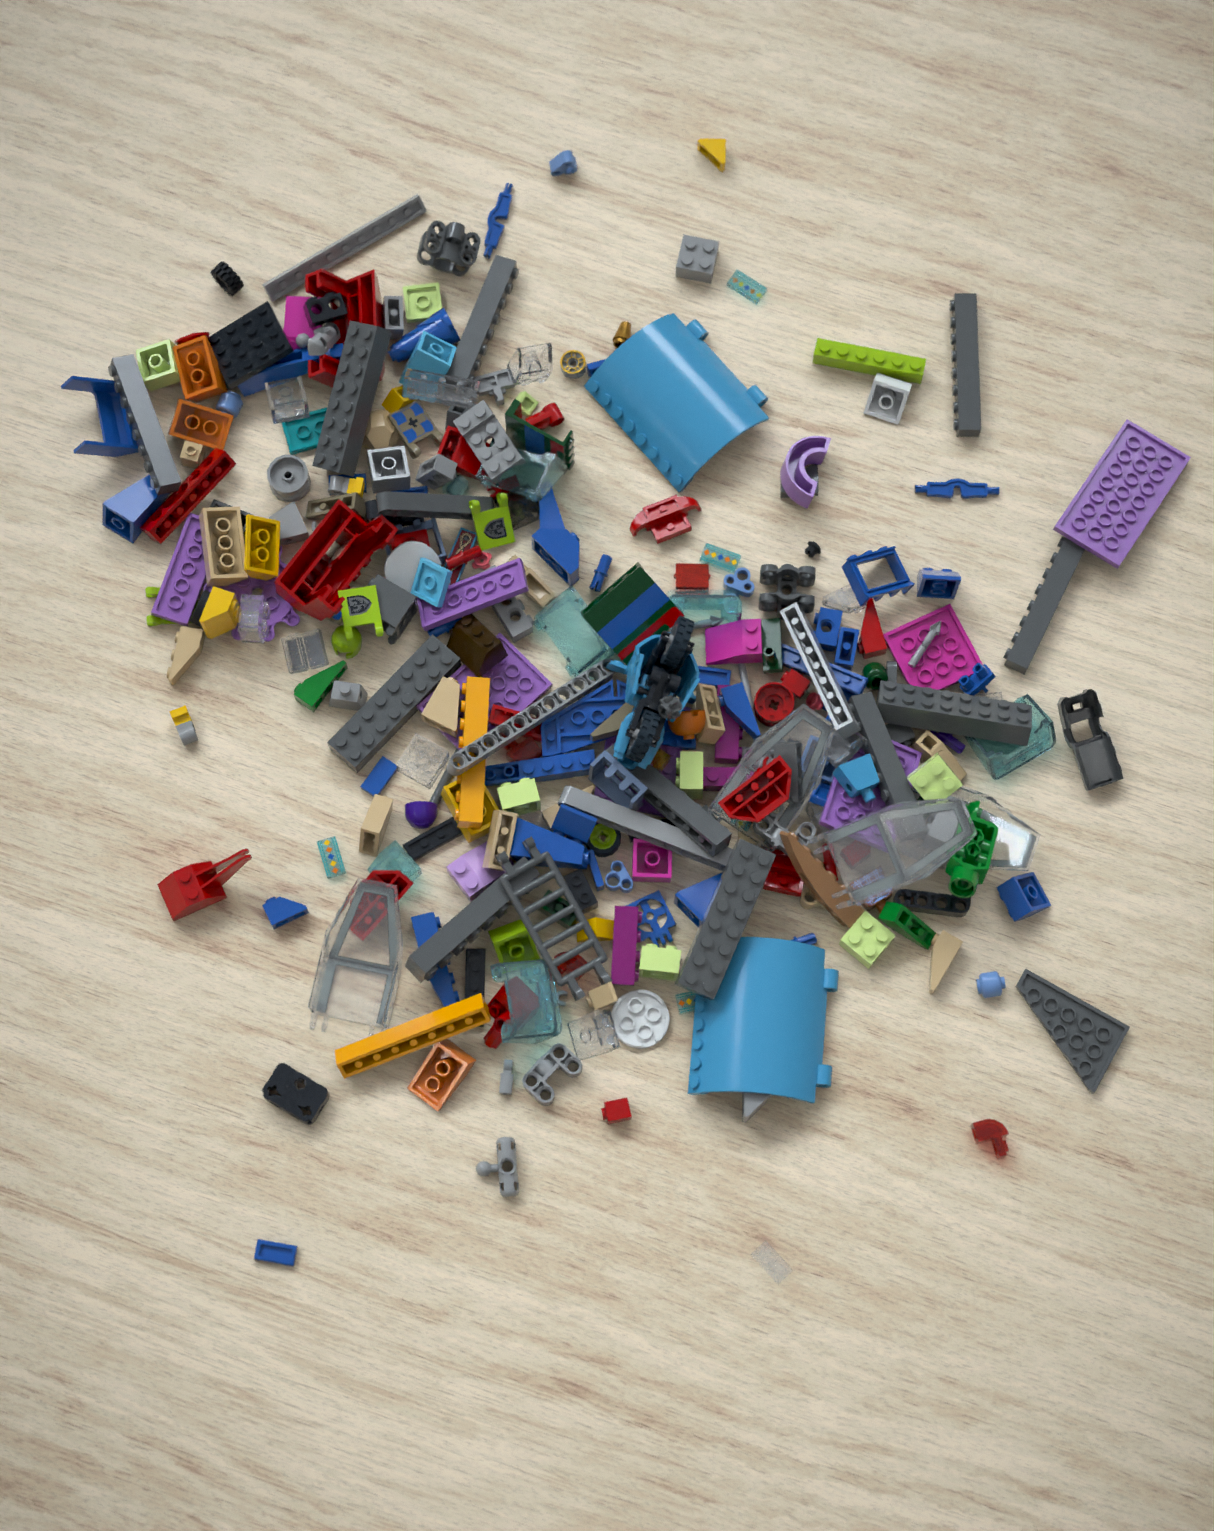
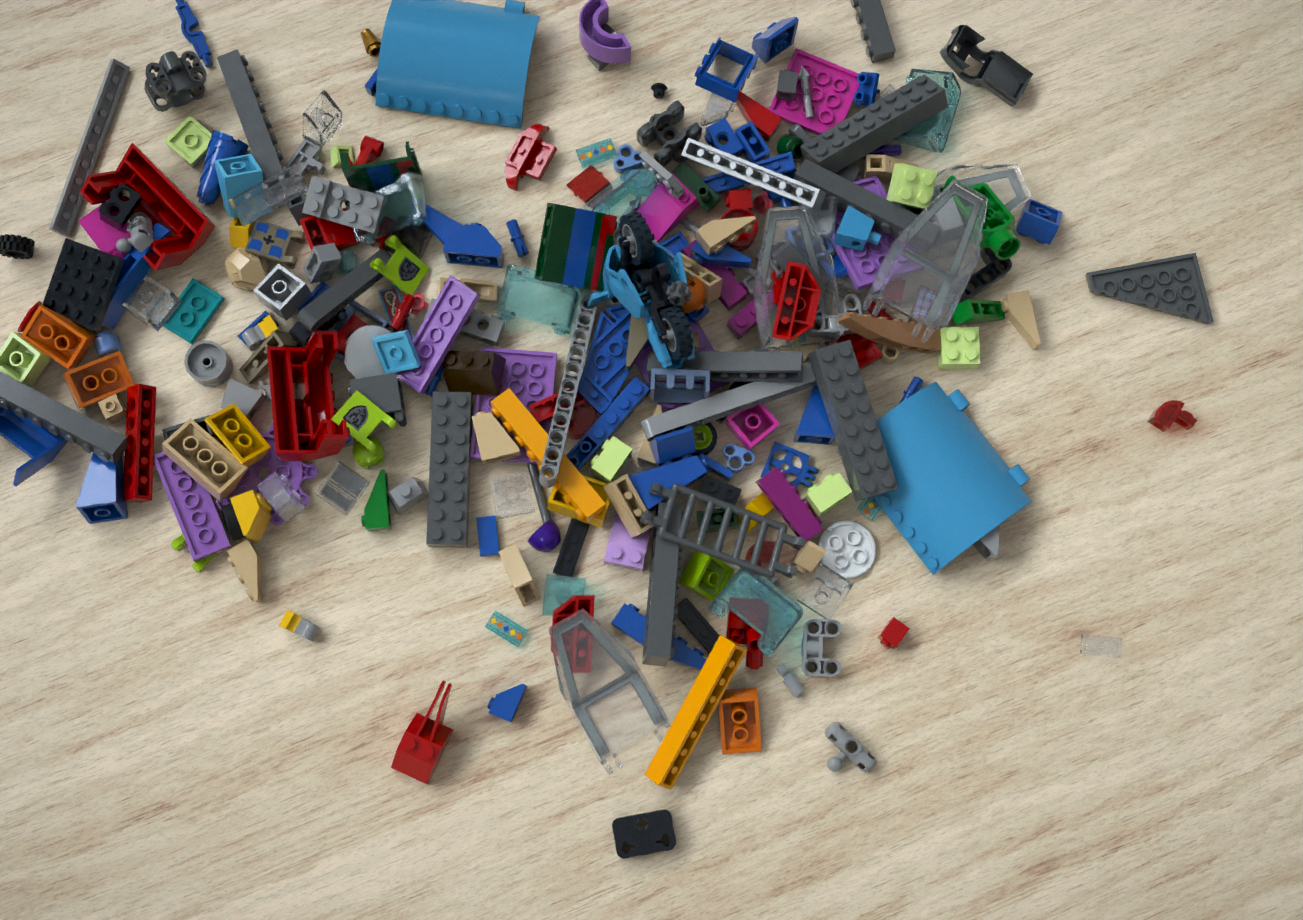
camera: 45 degrees left, 5 degrees up
(352, 398) = (205, 258): dark grey brick -> none
(393, 316) = (178, 171): light grey brick -> none
(568, 359) = (345, 94): light grey wheel -> none
(691, 773) = (723, 333): yellowish green brick -> none
(749, 614) = (662, 175): none -> light grey hinge
(750, 692) = (719, 232): none -> tan slope
(914, 625) = (786, 84): none -> dark grey brick
(990, 984) = (1072, 305): medium blue head -> none

